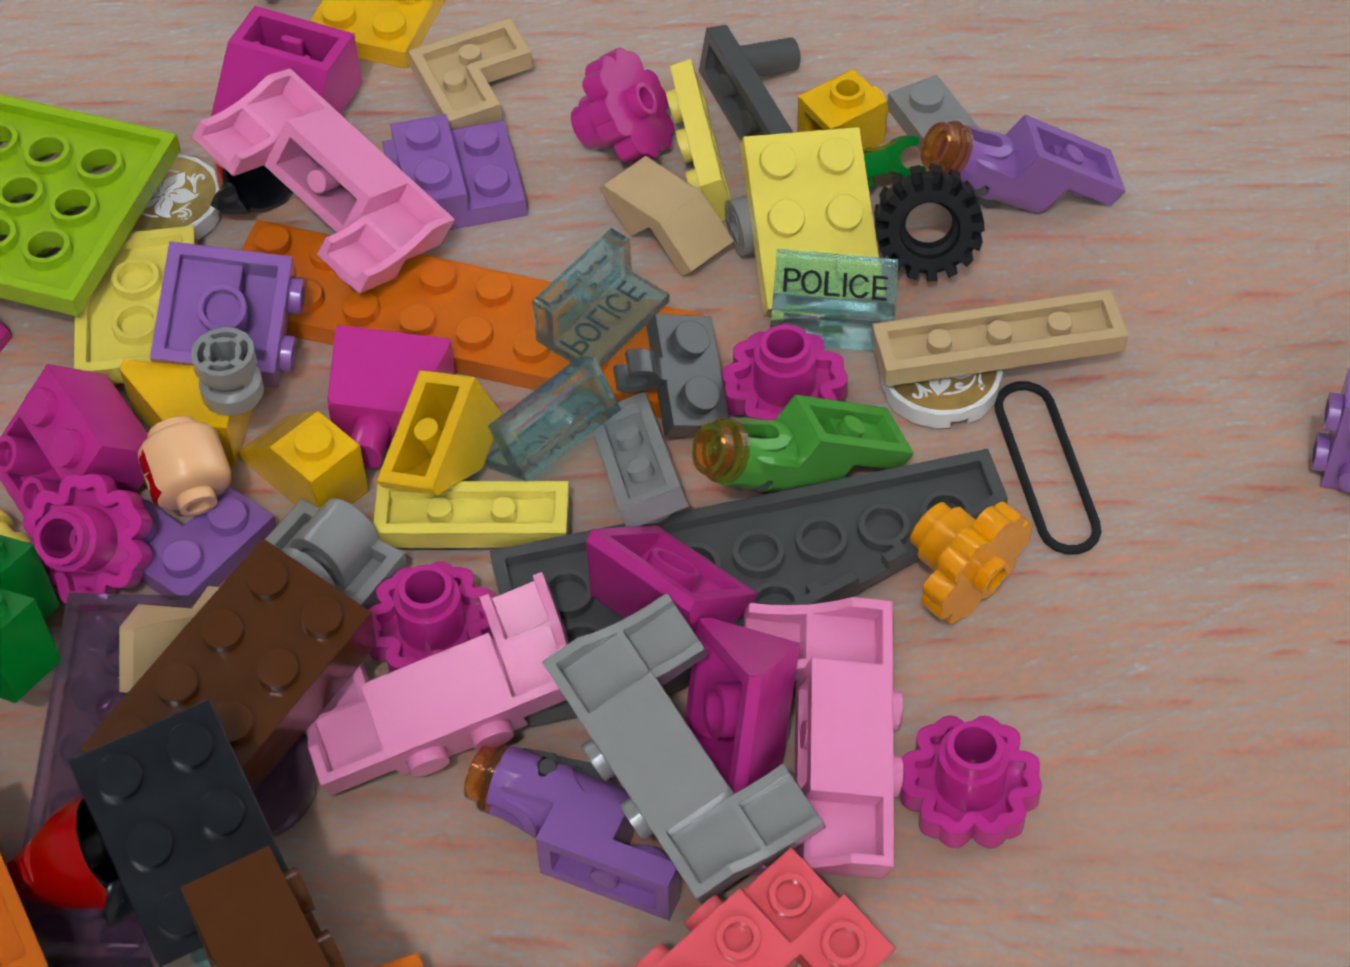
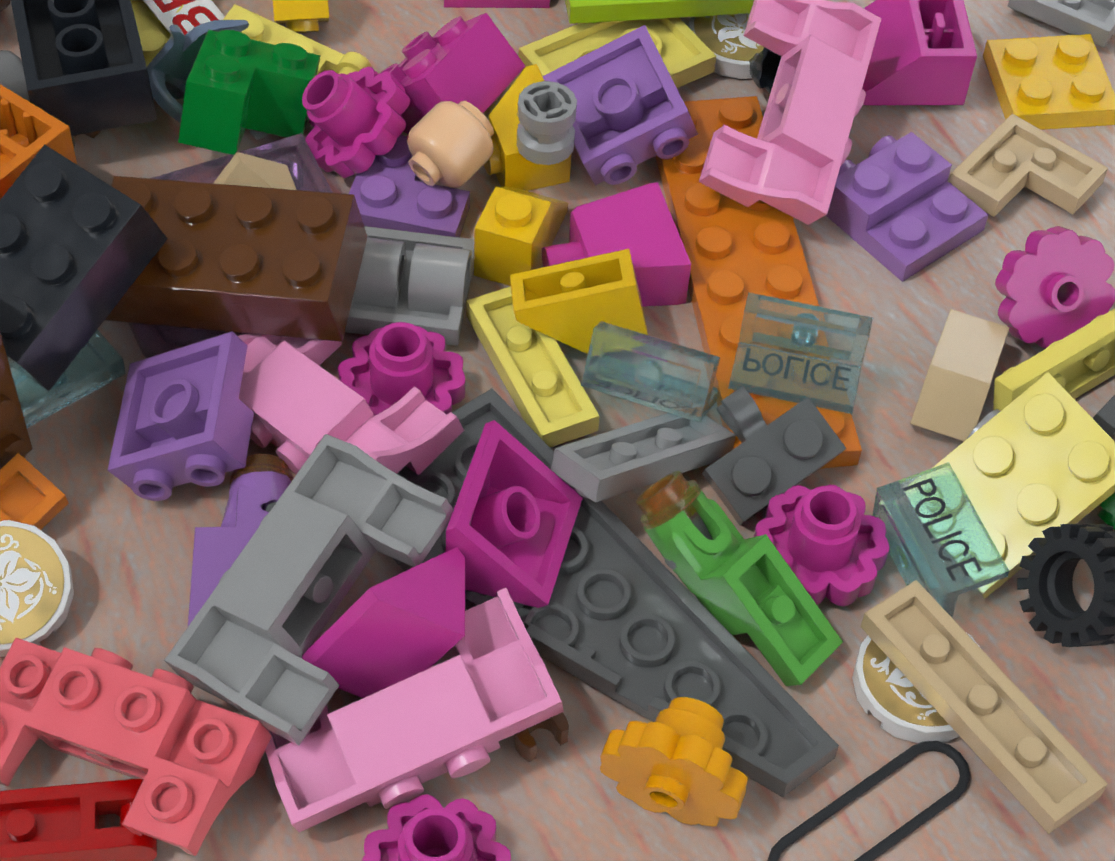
camera: 60 degrees right, 0 degrees up
(393, 809) = (183, 418): none -> medium lavender plate

